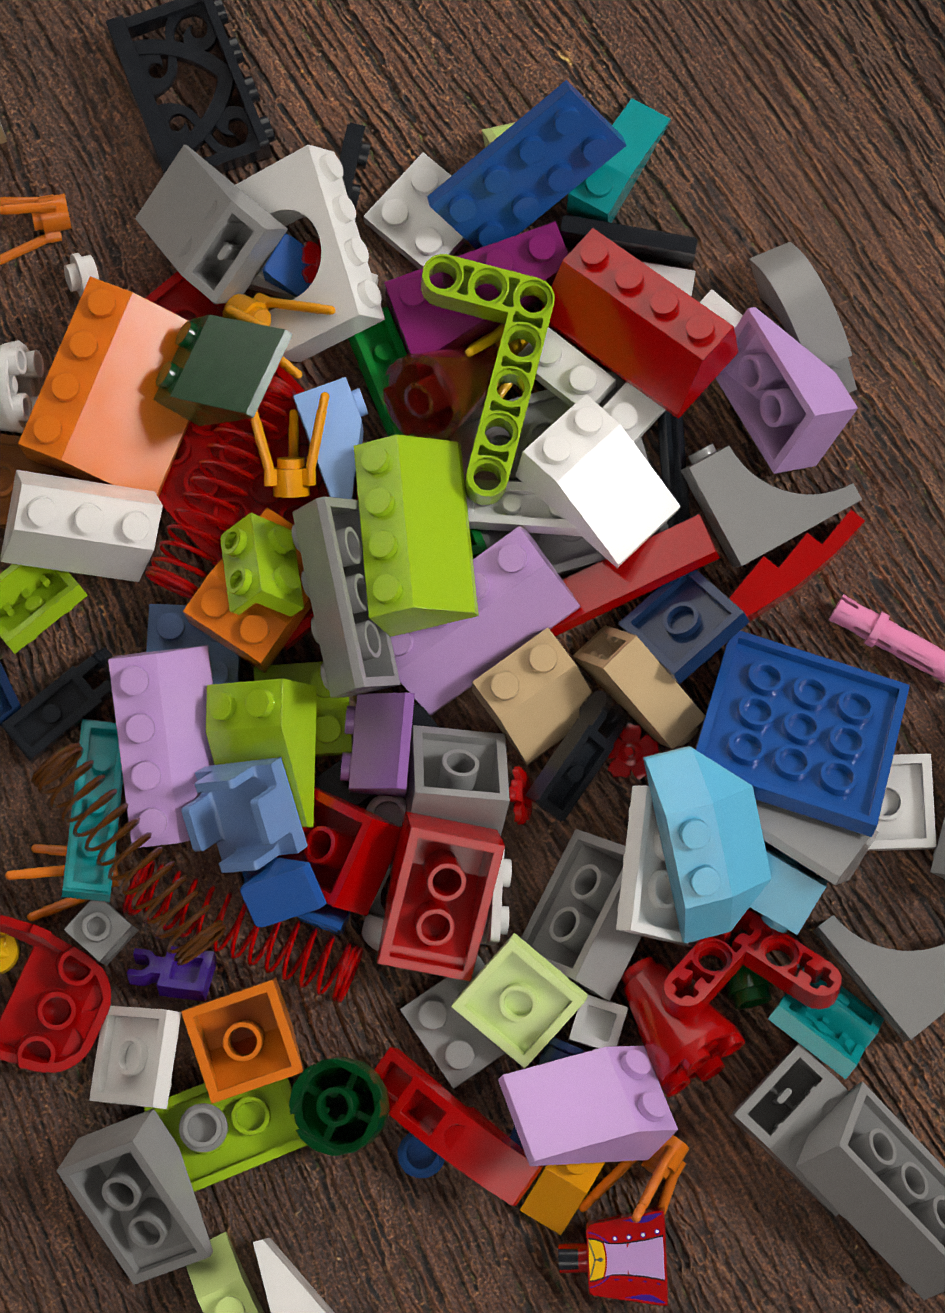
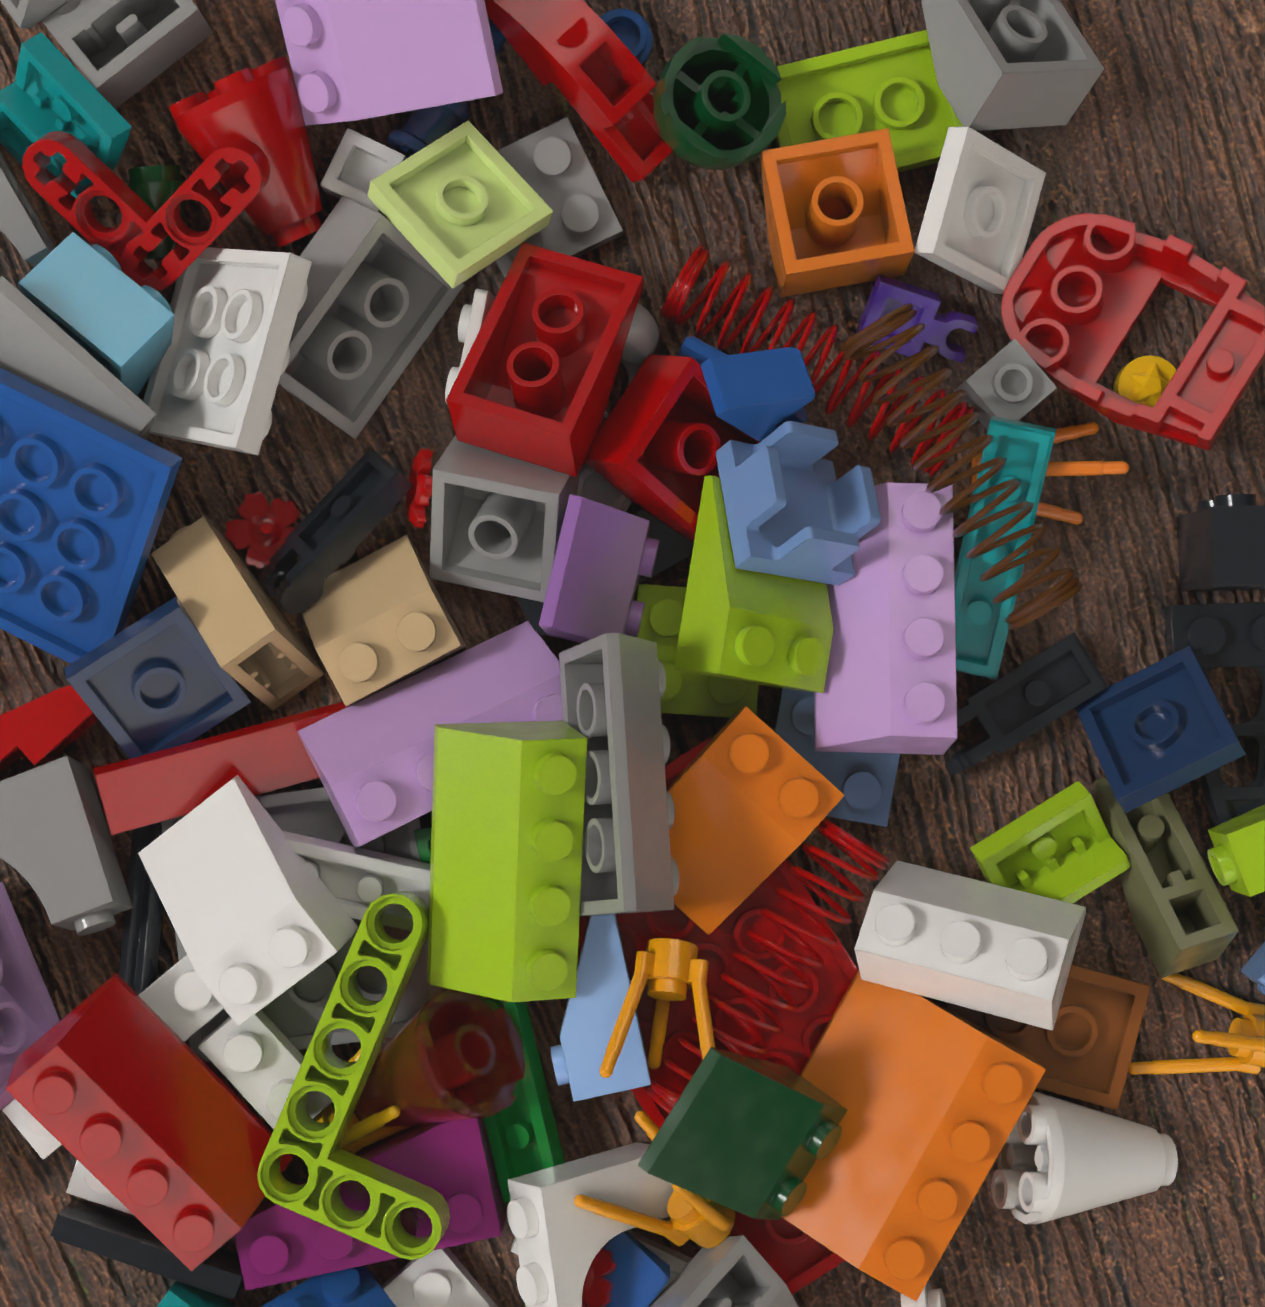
camera: 175 degrees left, 10 degrees up
(203, 1127) = (902, 104): light grey plate -> none
(261, 566) = (728, 840): lime bracket -> none
(707, 840) = (168, 368): medium azure wedge -> none

